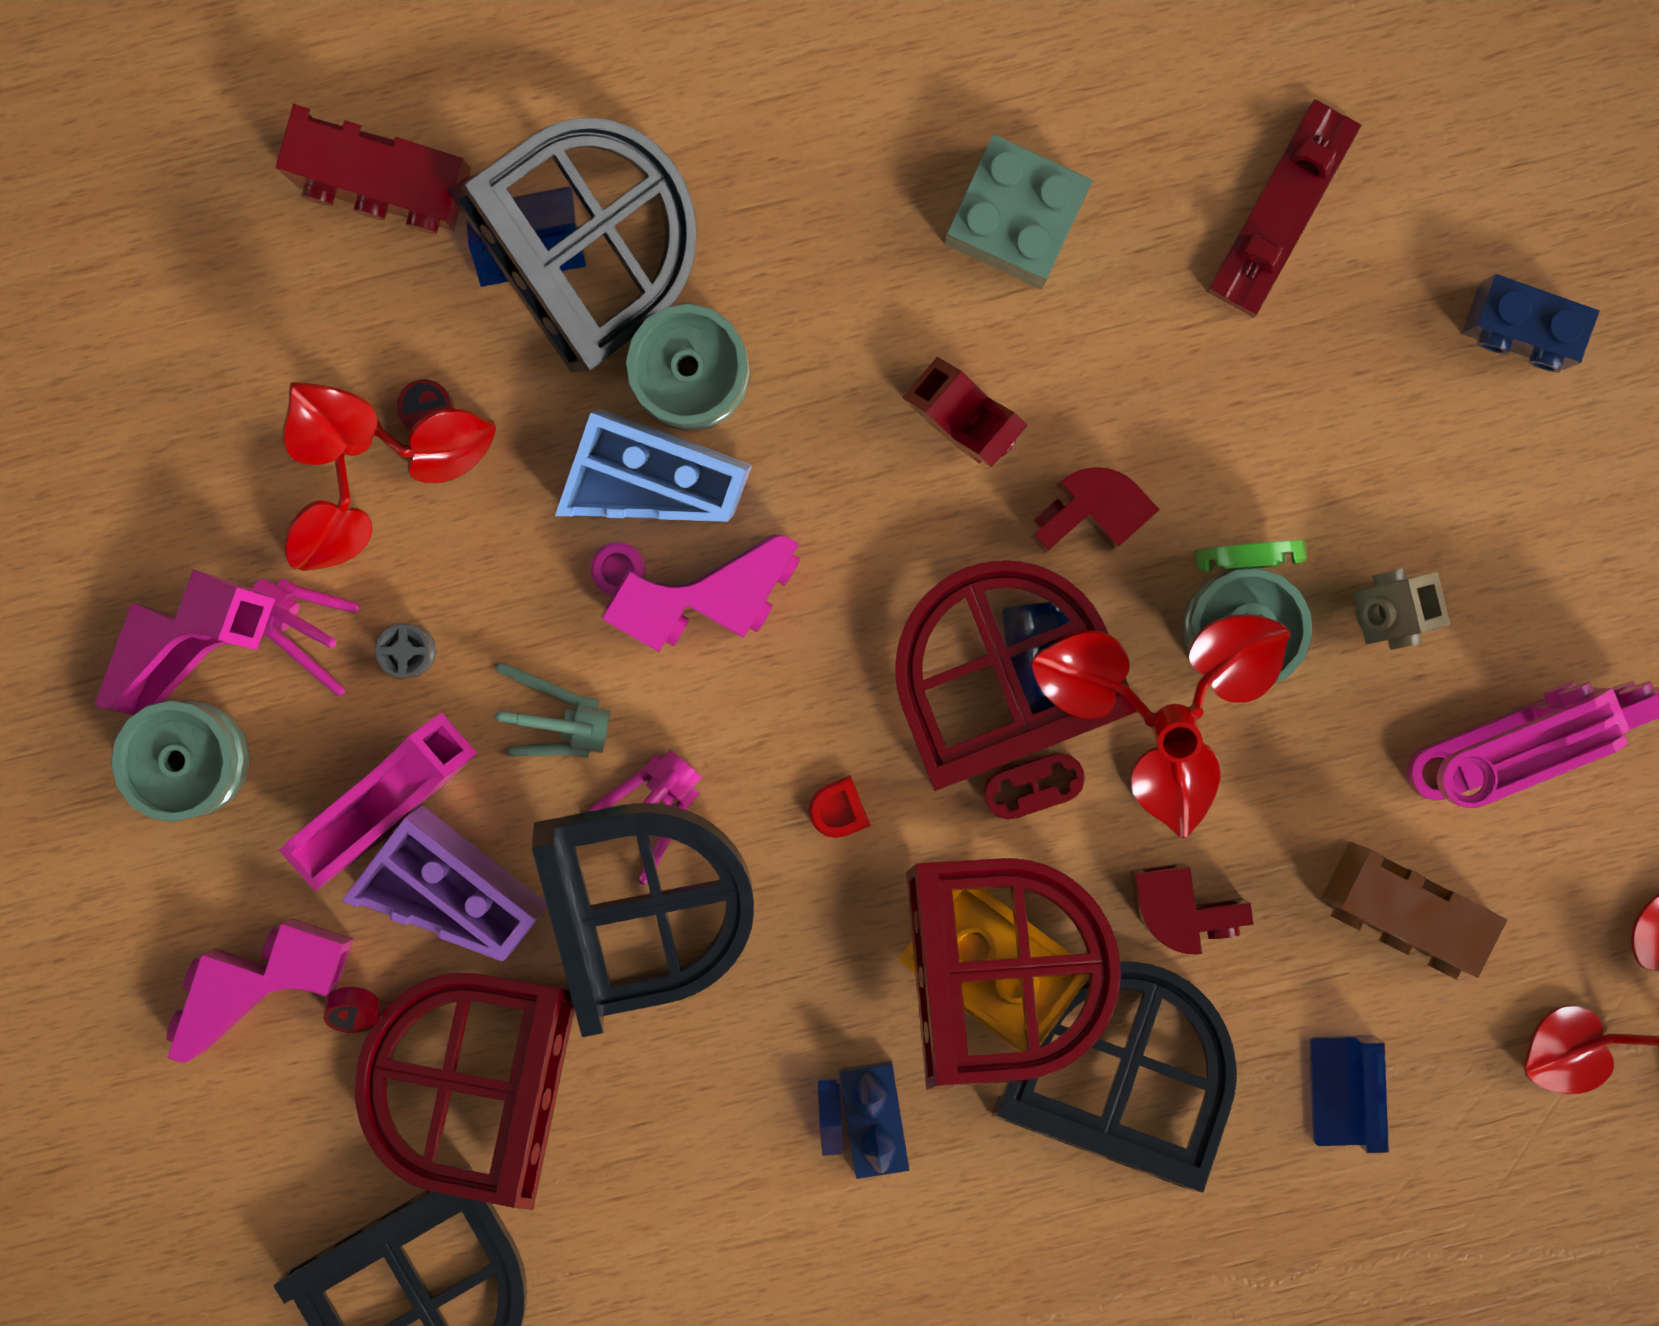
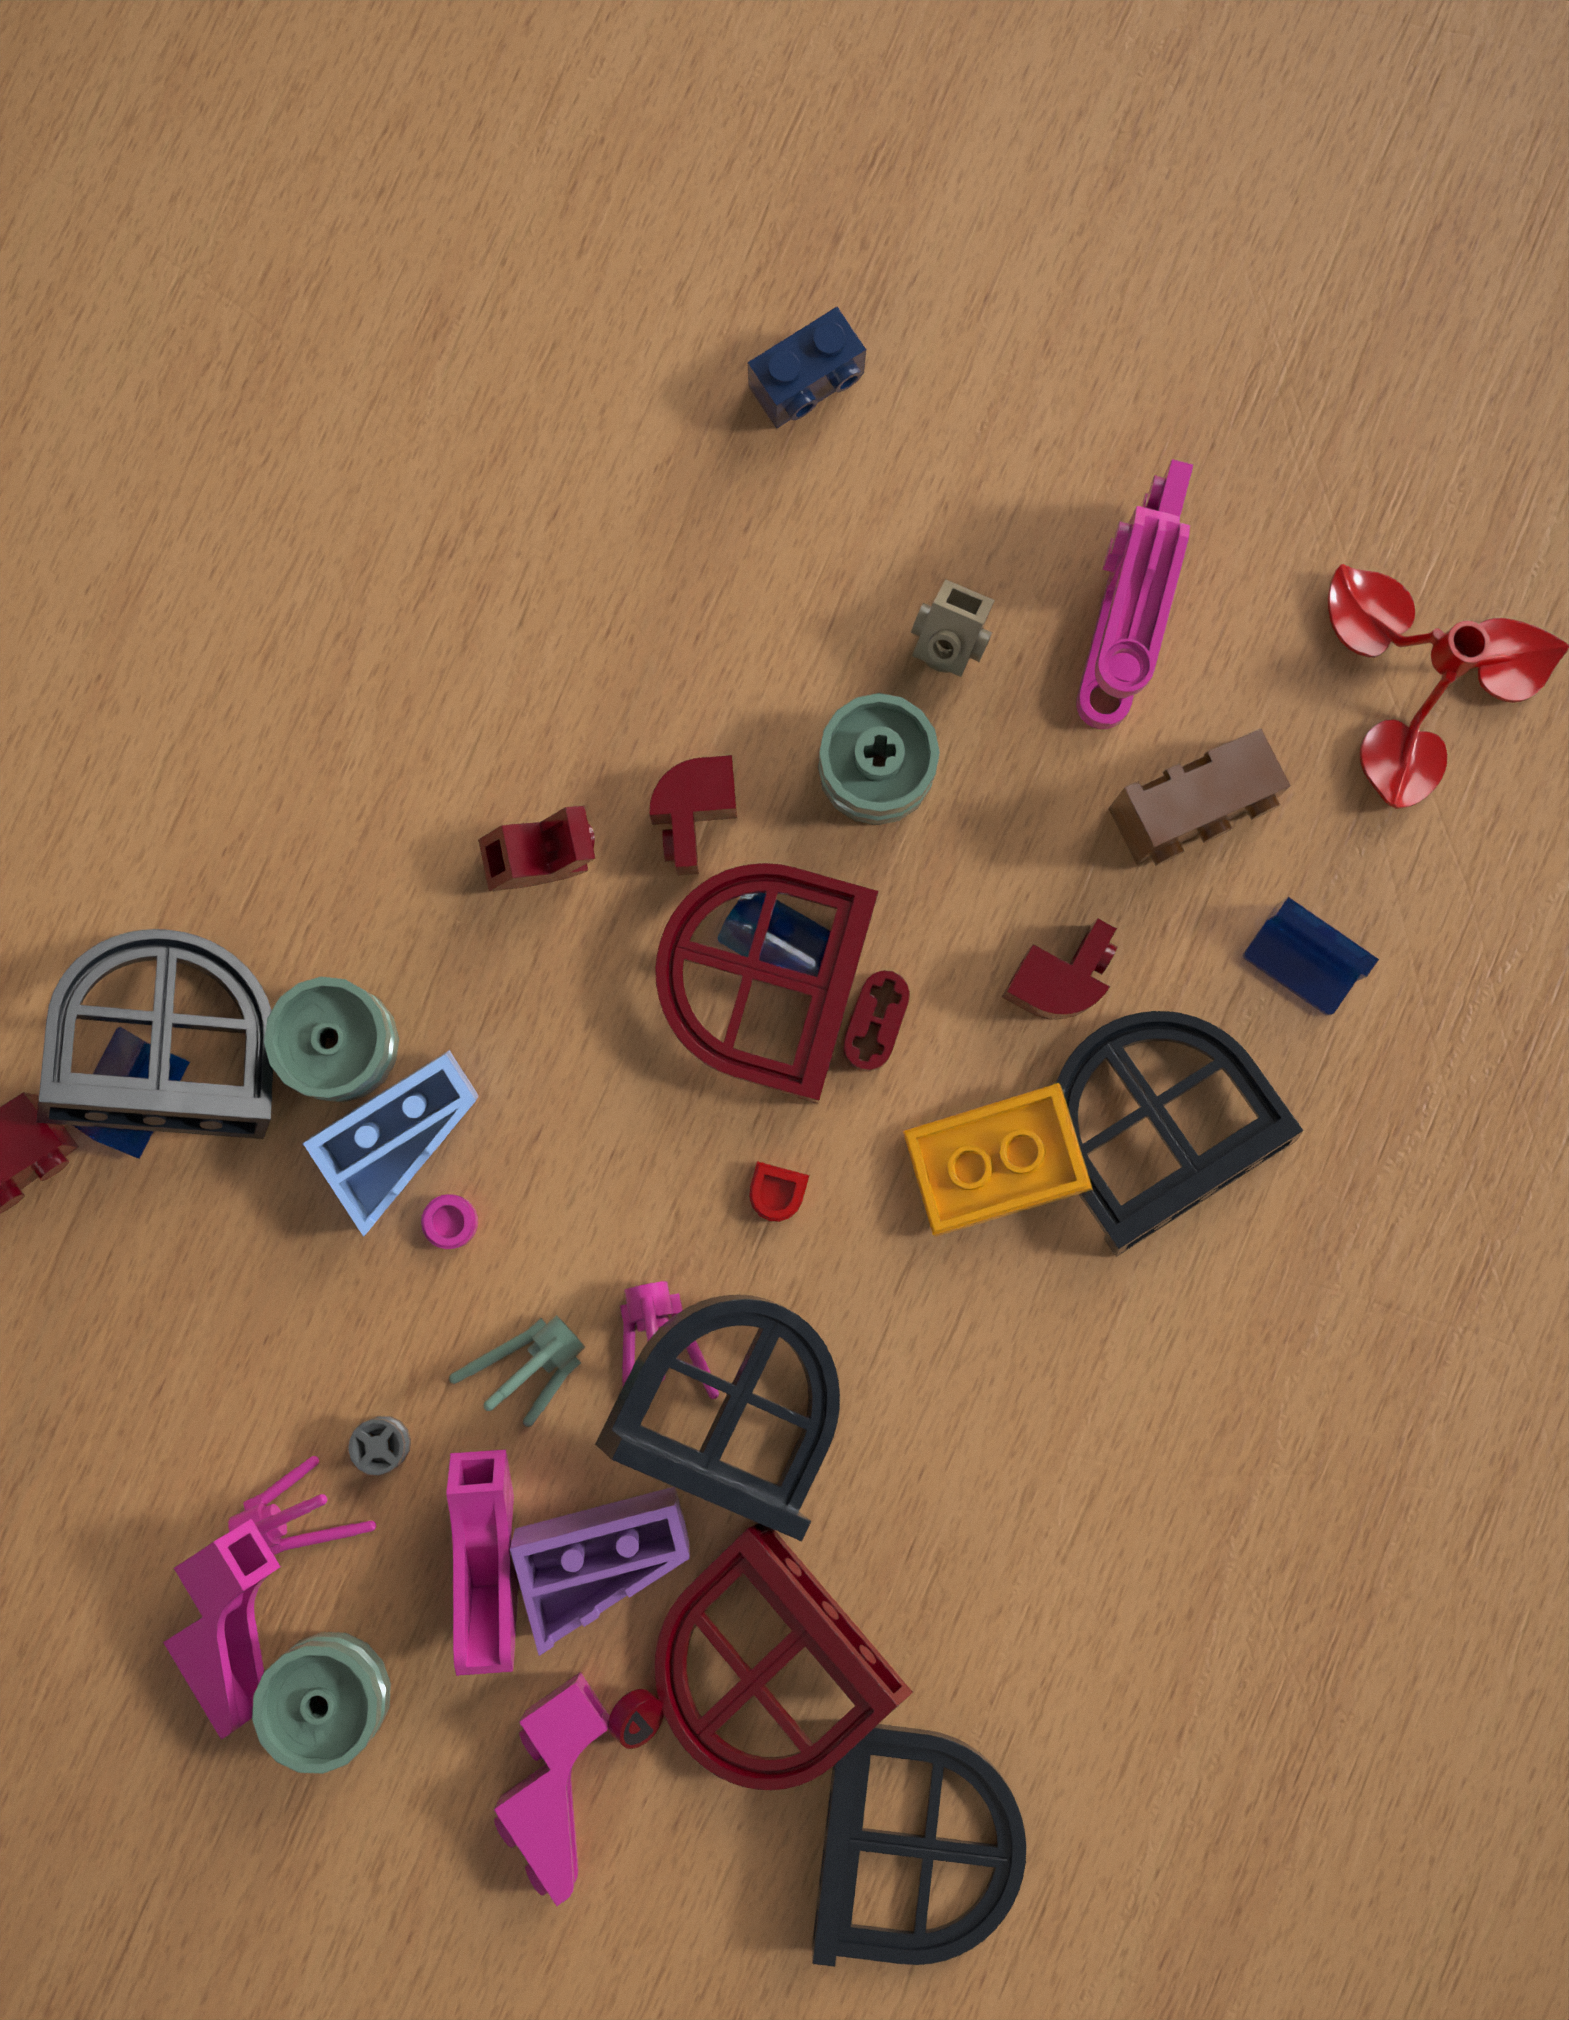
camera: 55 degrees left, 5 degrees down
(333, 423) = (150, 1352): red plant -> none
(421, 399) = (198, 1277): tile -> none
(728, 595) = (537, 1149): dark pink arch -> none
(830, 1117) = (1020, 1387): clear blue tile -> none
(874, 1119) = (1049, 1354): dark blue tile -> none
(941, 973) = (969, 1205): dark red window -> none
(1017, 211) = (414, 690): sand green brick -> none
(1182, 773) = (890, 779): red plant -> none
(1250, 555) = (820, 710): bright green tile -> none
(1283, 209) = (574, 489): dark red hinge -> none

